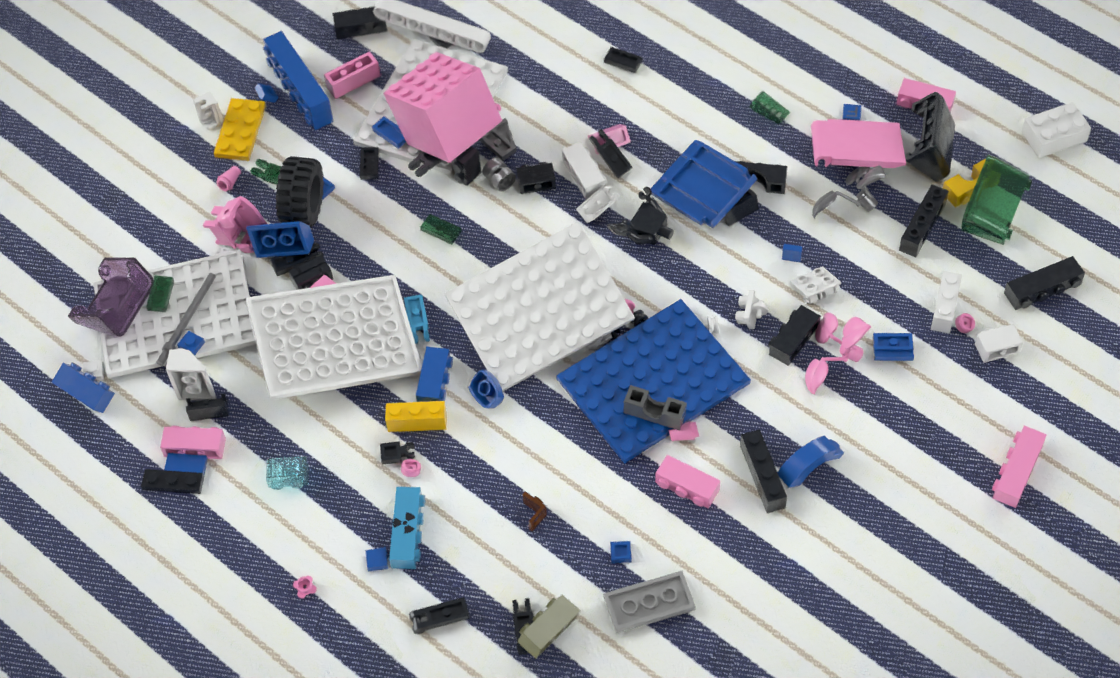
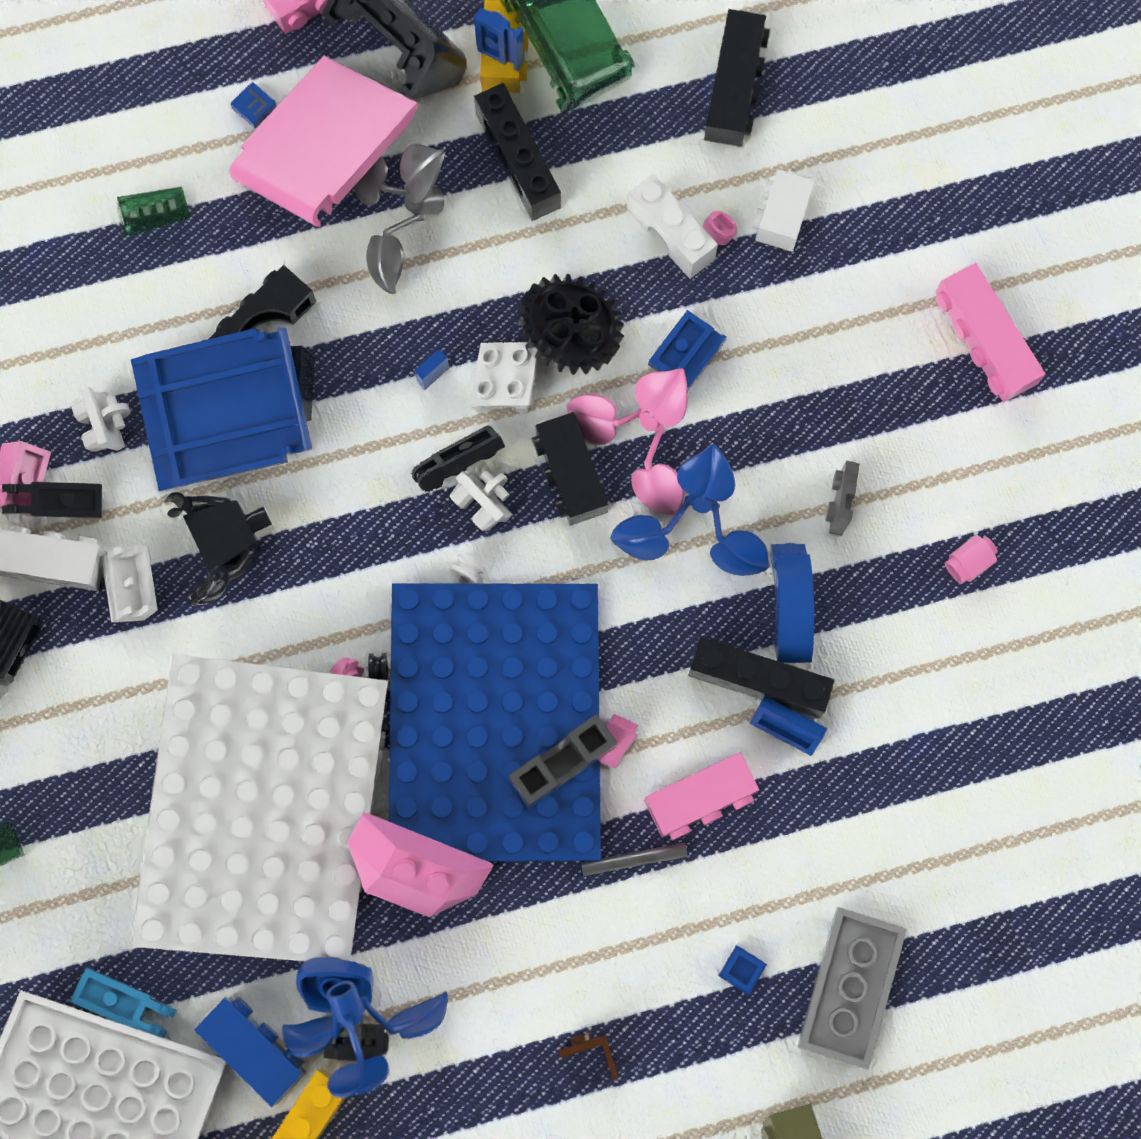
camera: 60 degrees left, 20 degrees up
(462, 409) = (372, 1043): none -> black bracket
(479, 390) = (347, 1011): none -> blue plant
(560, 385) = (412, 867): none -> bright pink wedge
(636, 475) = (634, 859): none -> flat silver bar
(662, 148) = (105, 417): none -> white hips
(750, 497) = (788, 726): none -> blue tile
(773, 293) = (456, 458): none -> black hinge
(832, 374) = (706, 480): none -> blue plant
(861, 290) = (574, 316): none -> black gear
(878, 452) = (839, 512): none -> flat silver wing
(899, 527) = (971, 559): none -> bright pink brick
(963, 171) = (498, 39): none -> blue plate

